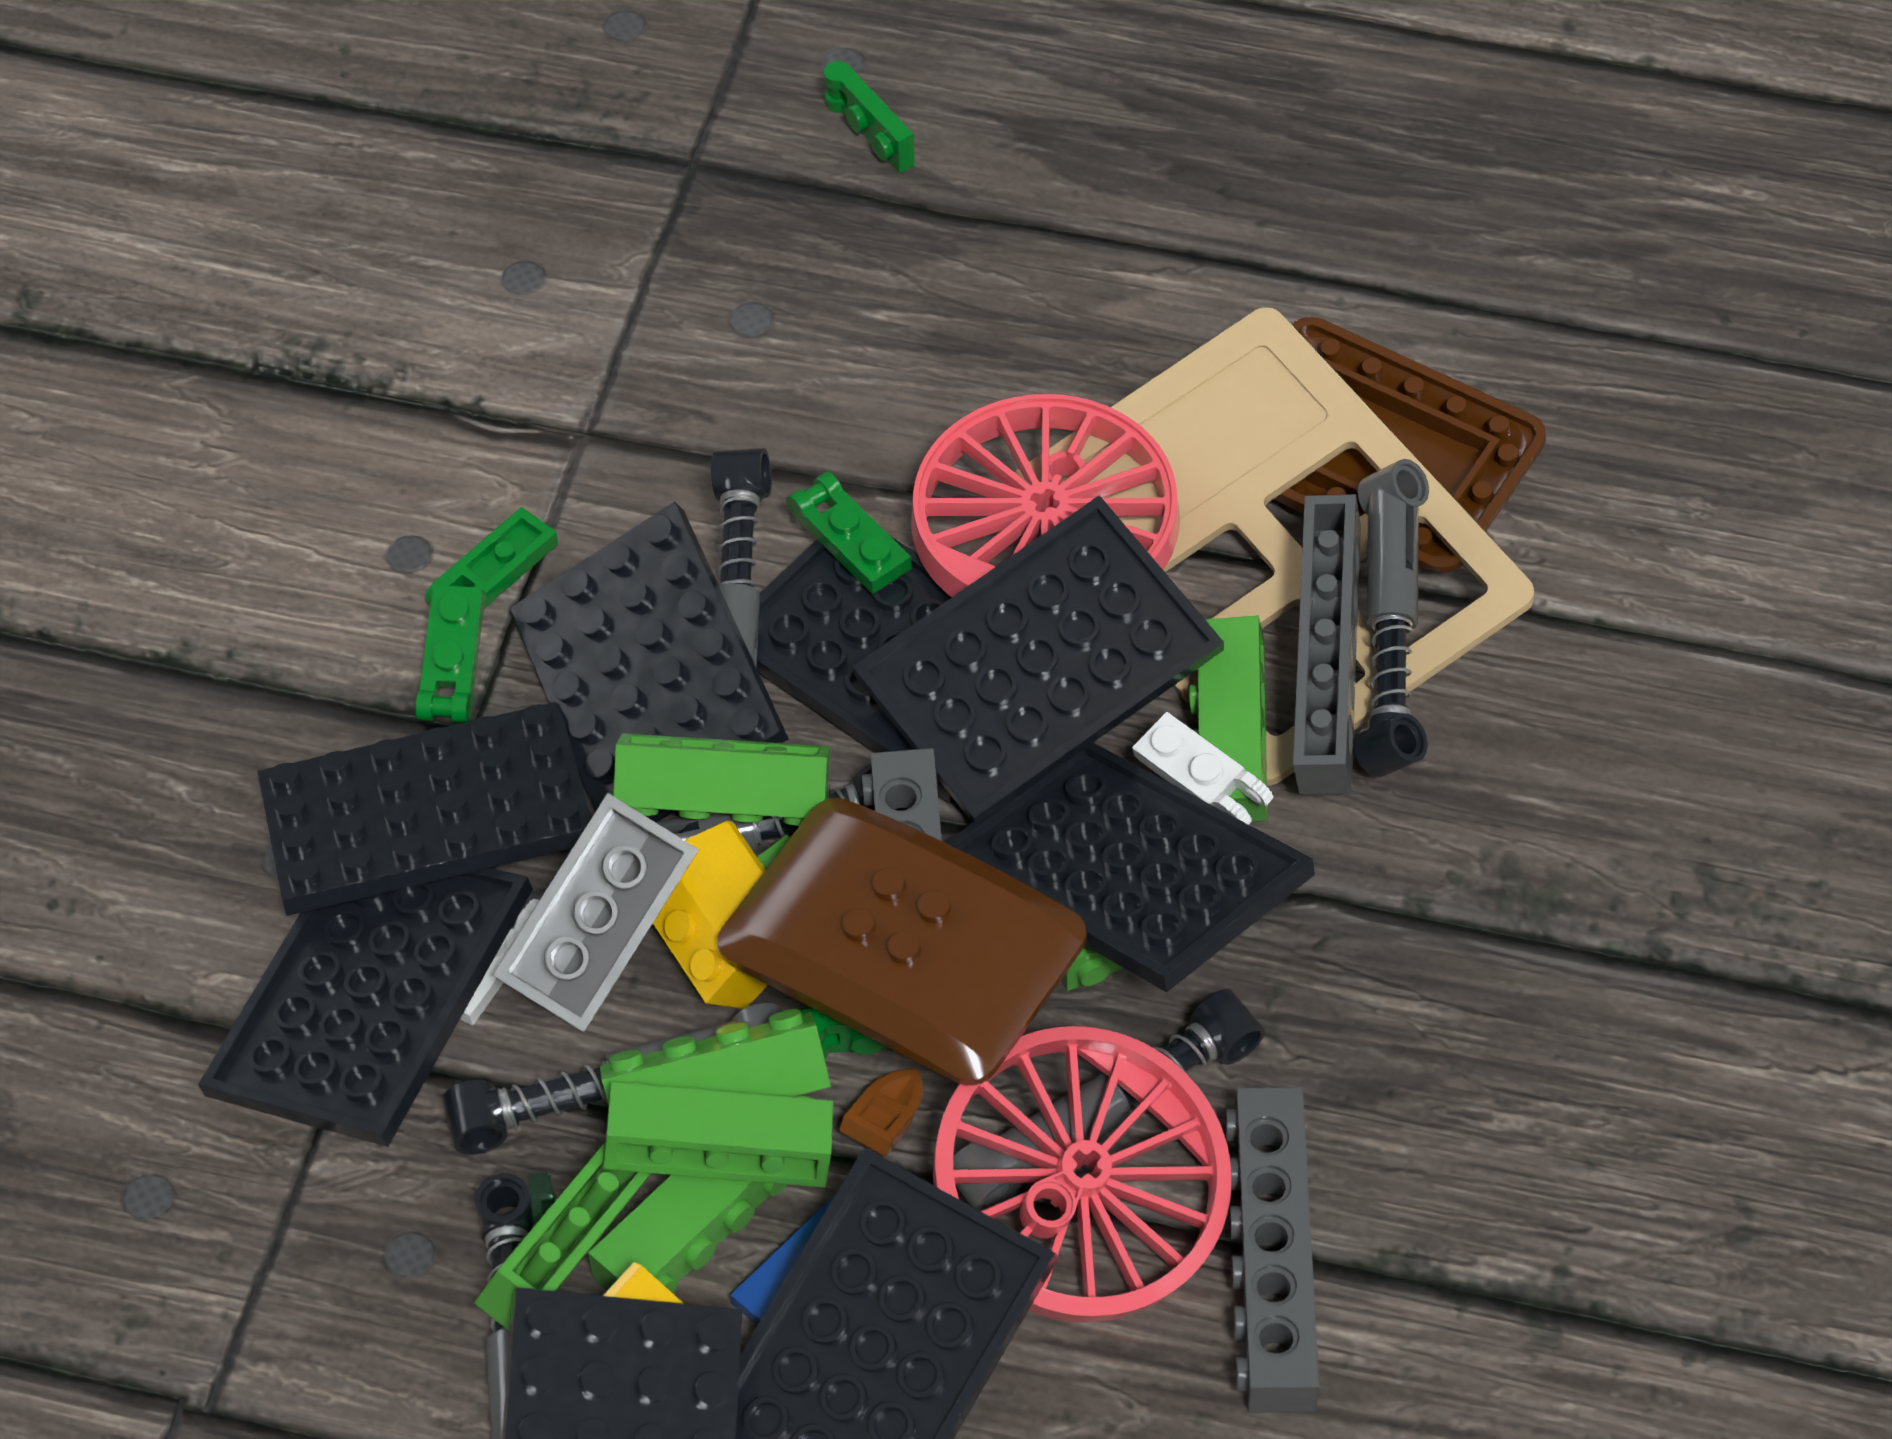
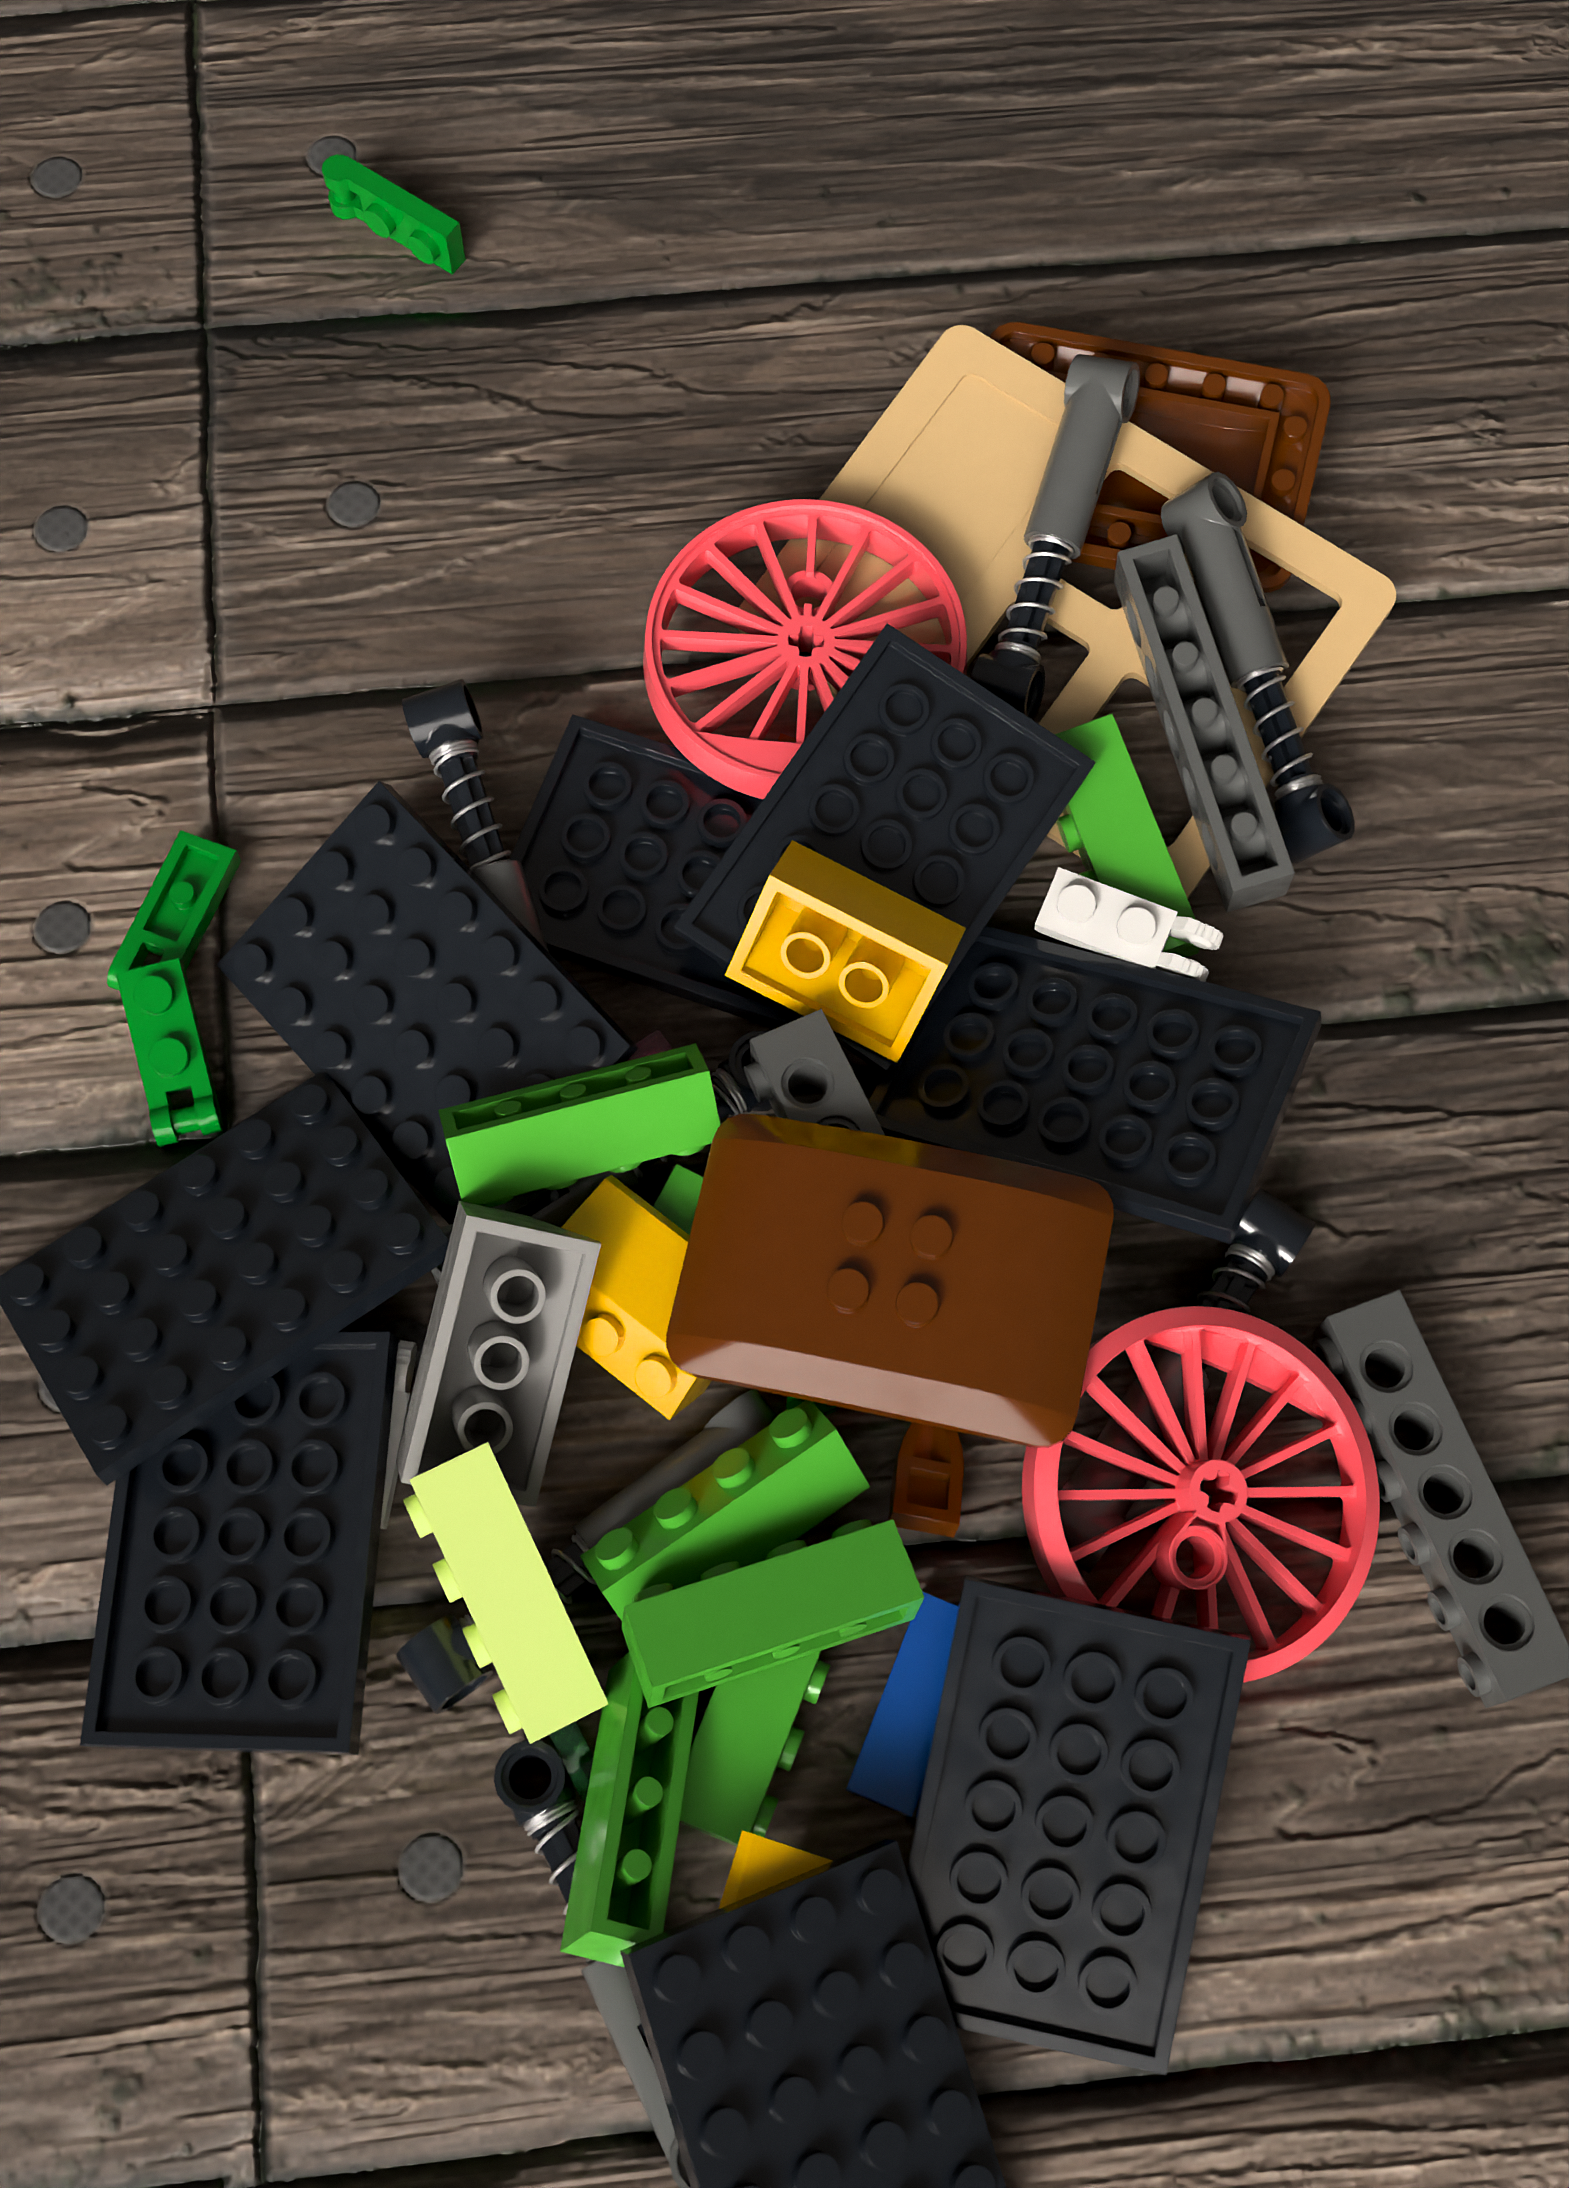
camera: 25 degrees left, 15 degrees up
(535, 1064) = (507, 1593): none -> yellowish green brick
(849, 533) = (588, 747): green plate -> none
(973, 713) = (844, 948): none -> yellow slope
(1344, 388) = (1096, 401): none -> piece

